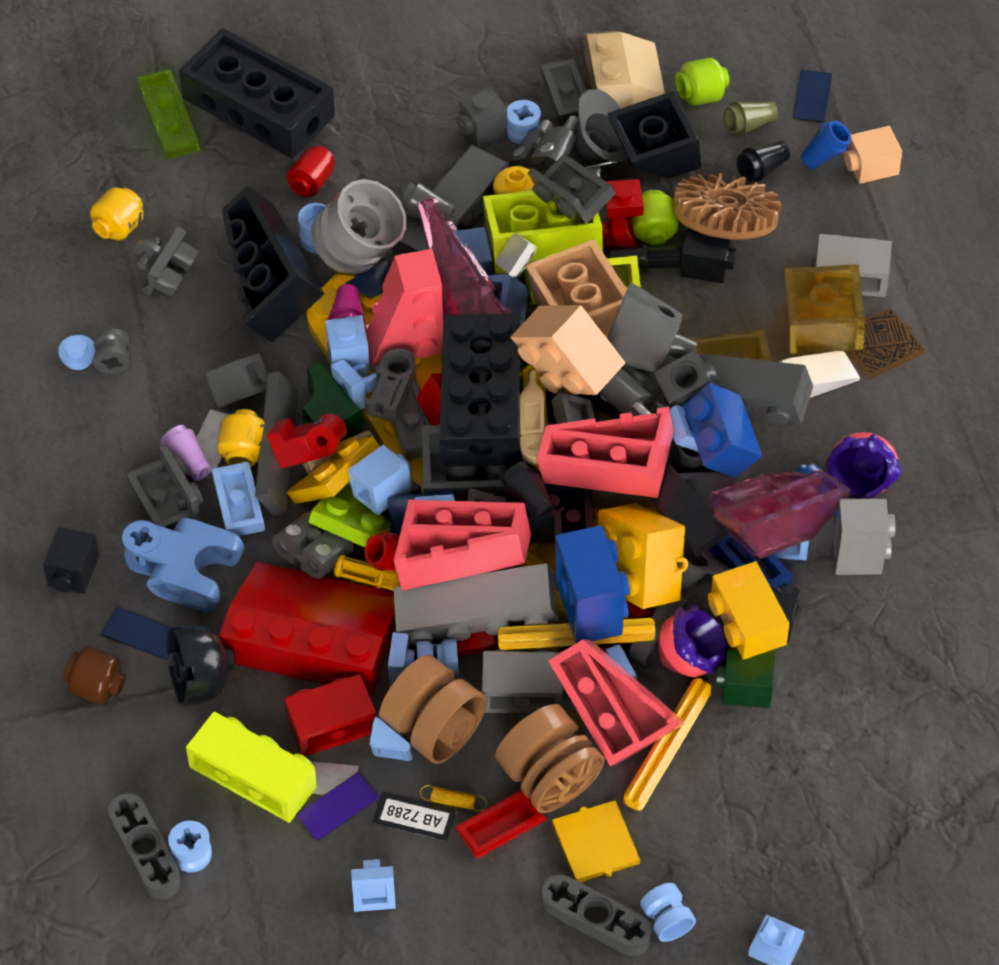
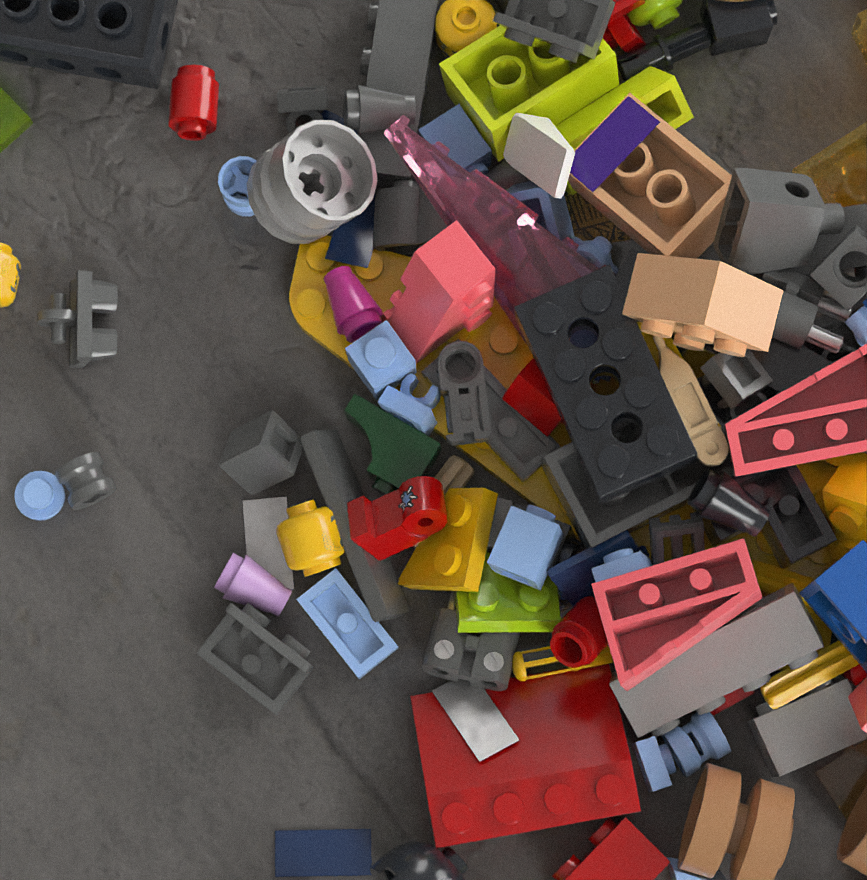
camera: 20 degrees left, 25 degrees up
(71, 560) = (193, 805): black brick -> none
(177, 556) = (317, 741): medium blue piece -> none
(270, 266) = (217, 271): black wedge -> none
(292, 583) = (475, 718): none -> flat silver sticker
(564, 261) = (612, 143): none -> dark purple sticker

